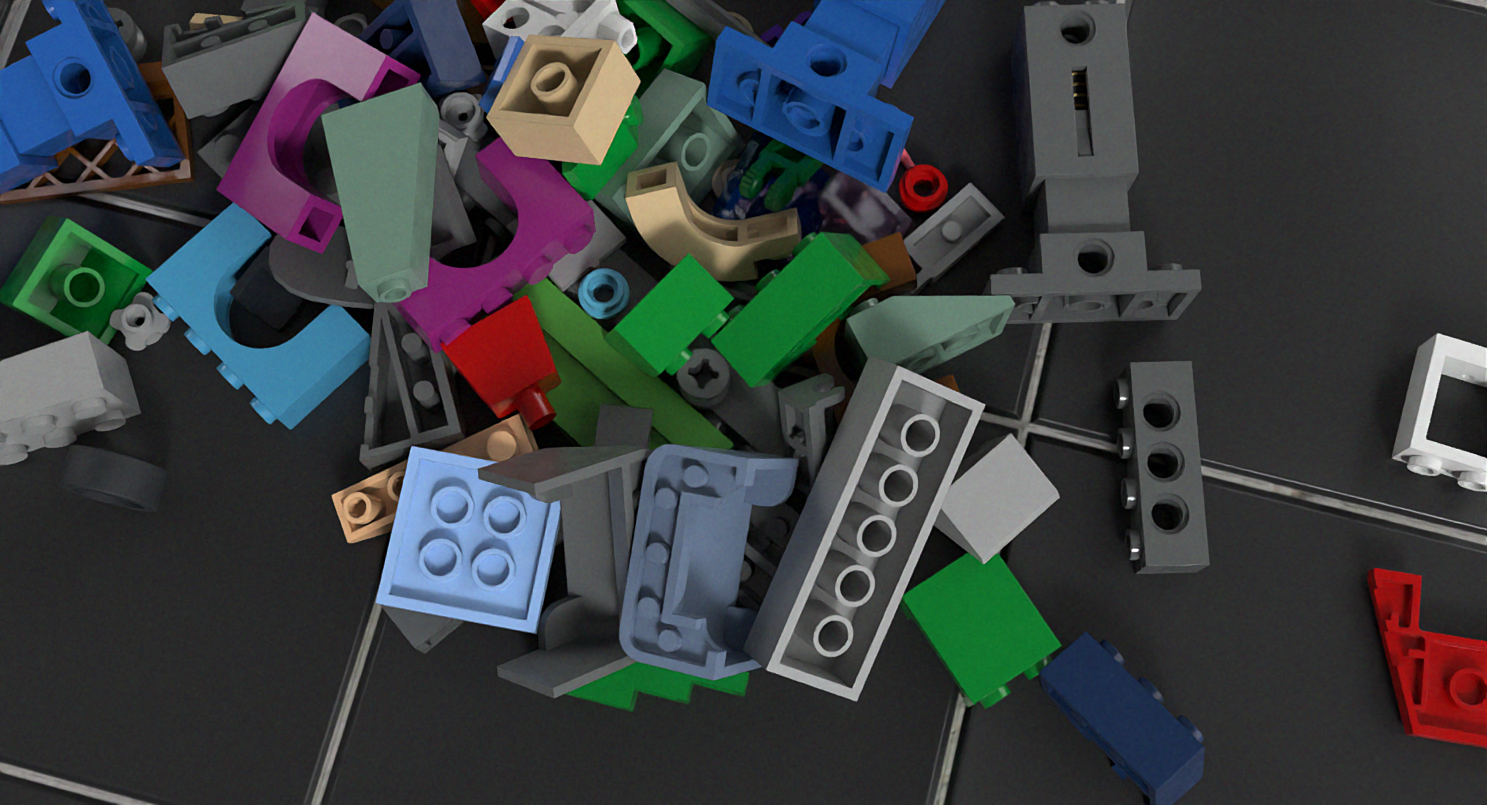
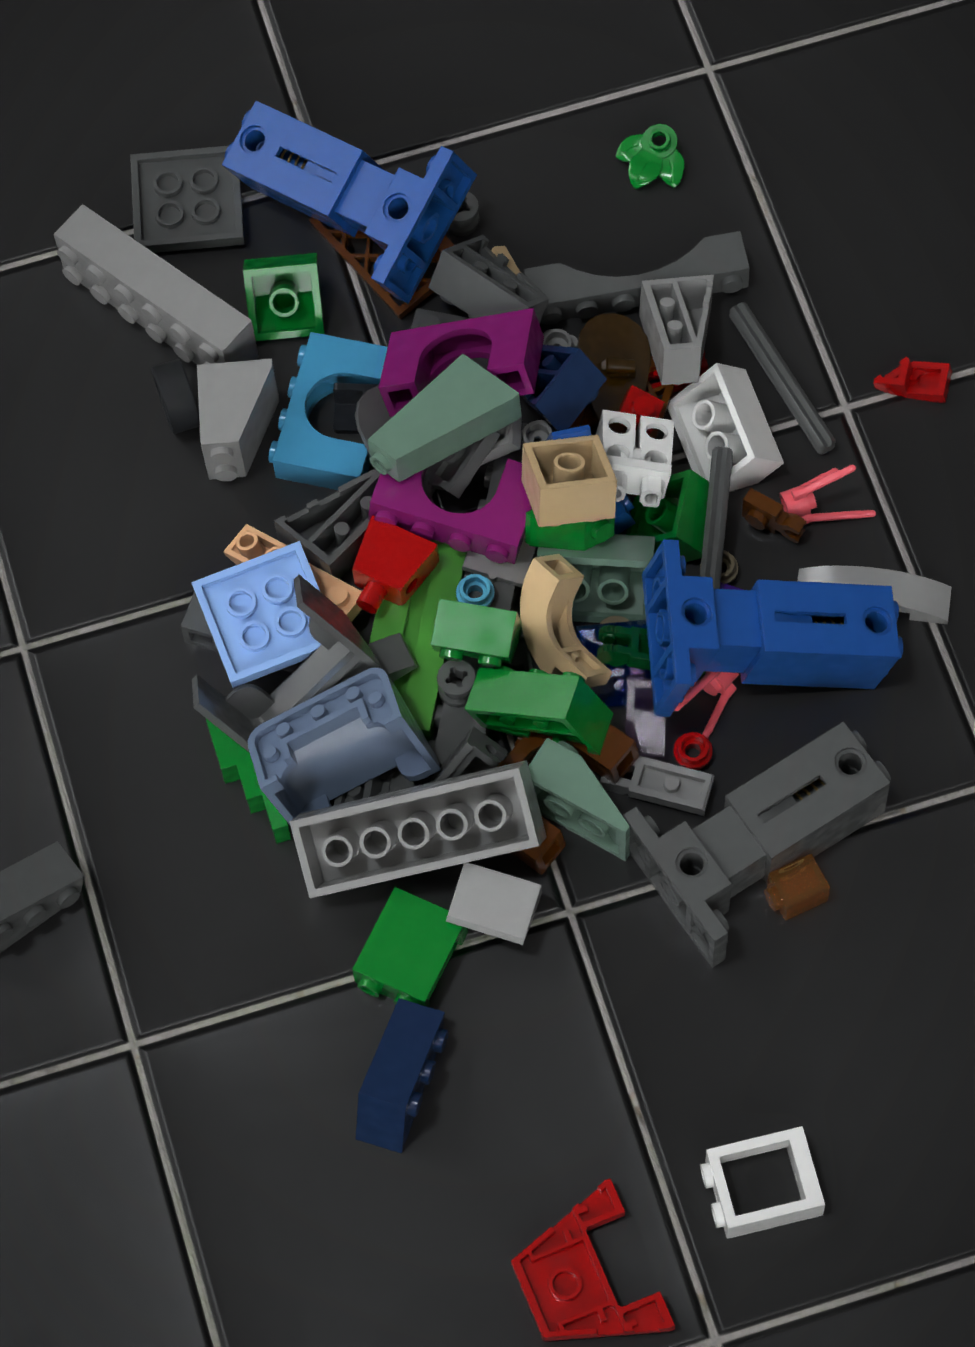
camera: 60 degrees right, 10 degrees down
(150, 331) = (282, 357): light grey plate -> none
(183, 424) = (234, 414): none -> light grey slope
(1158, 179) = (797, 887): none -> clear orange brick
(1170, 390) = (549, 1048): dark grey brick -> none

